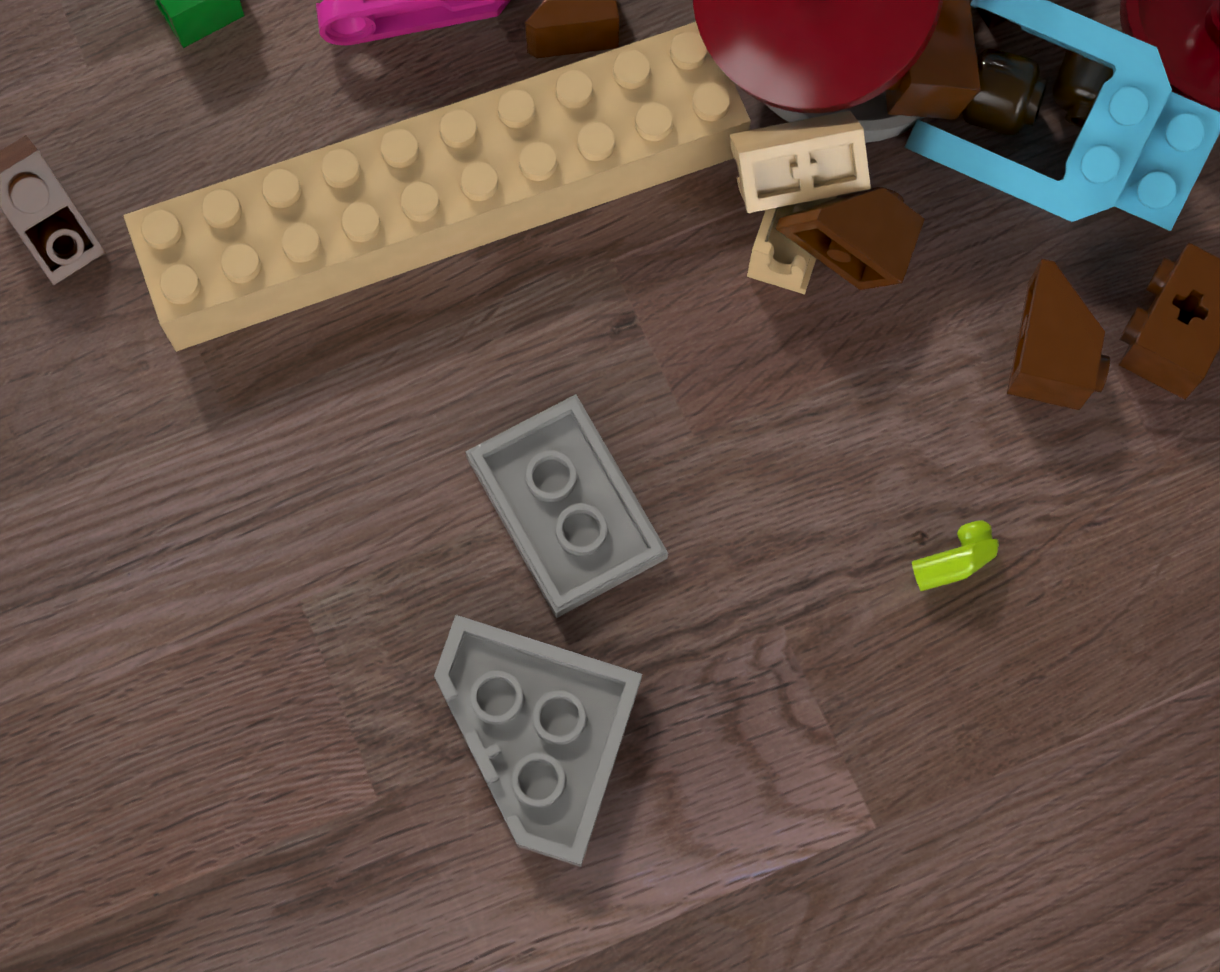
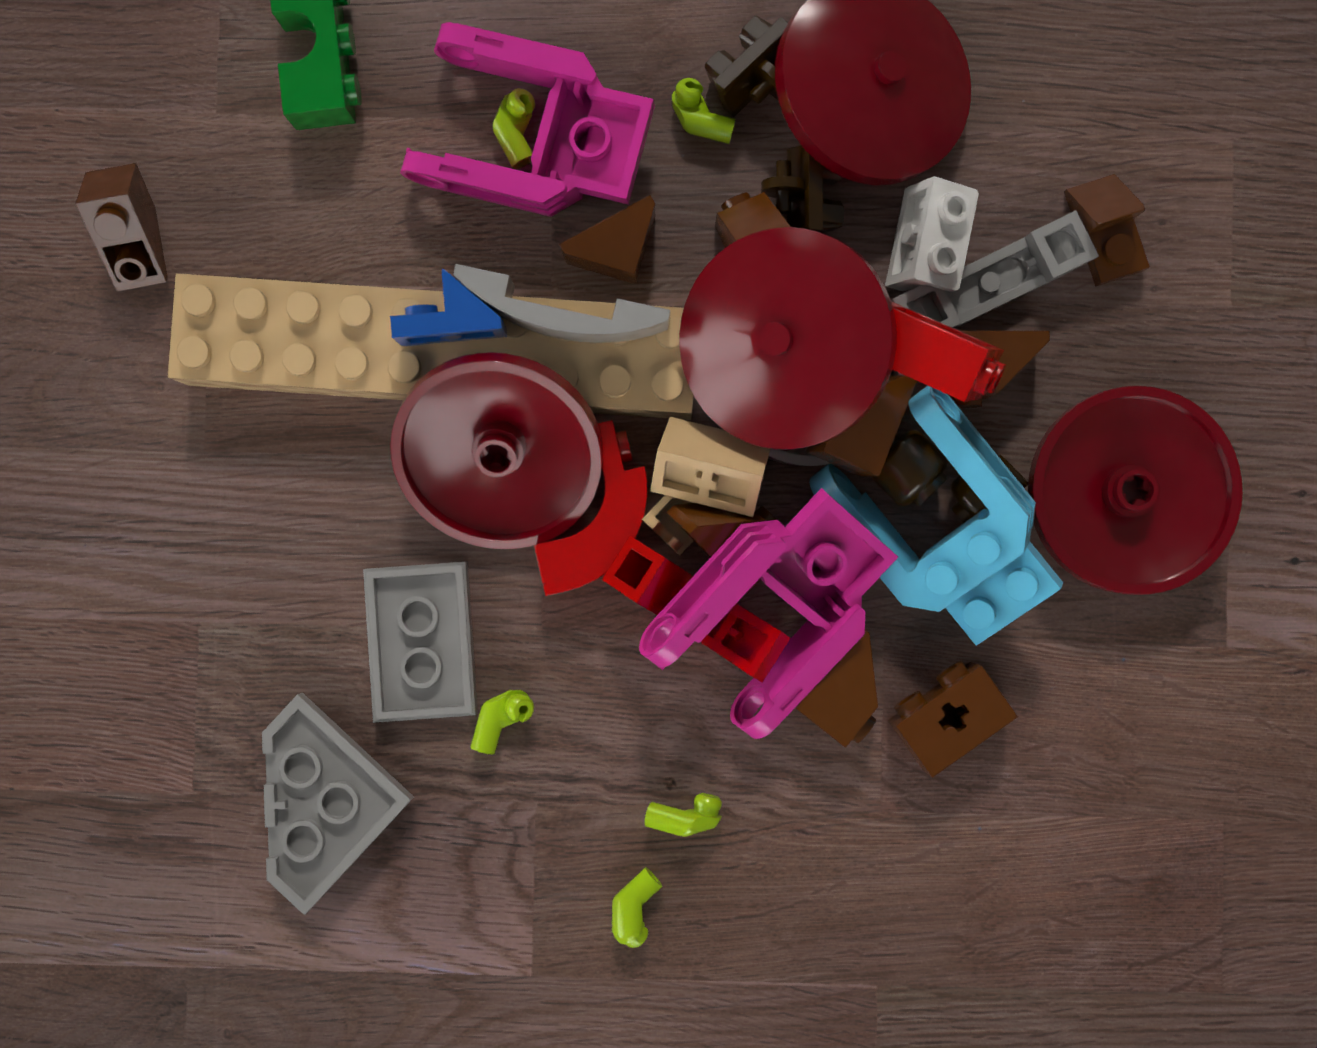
camera: 30 degrees right, 15 degrees up
(466, 114) = (462, 320): none -> blue slope
(562, 246) = (497, 450): none -> dark red dish
(566, 76) = (628, 322): none -> light grey slope
(694, 541) = (497, 714): none -> lime arm
(707, 326) = (589, 553): none -> red arch
(850, 329) = (655, 581): none -> red arch
(948, 690) = (627, 909): none -> lime arm
(971, 215) = (815, 565): none -> dark pink plate

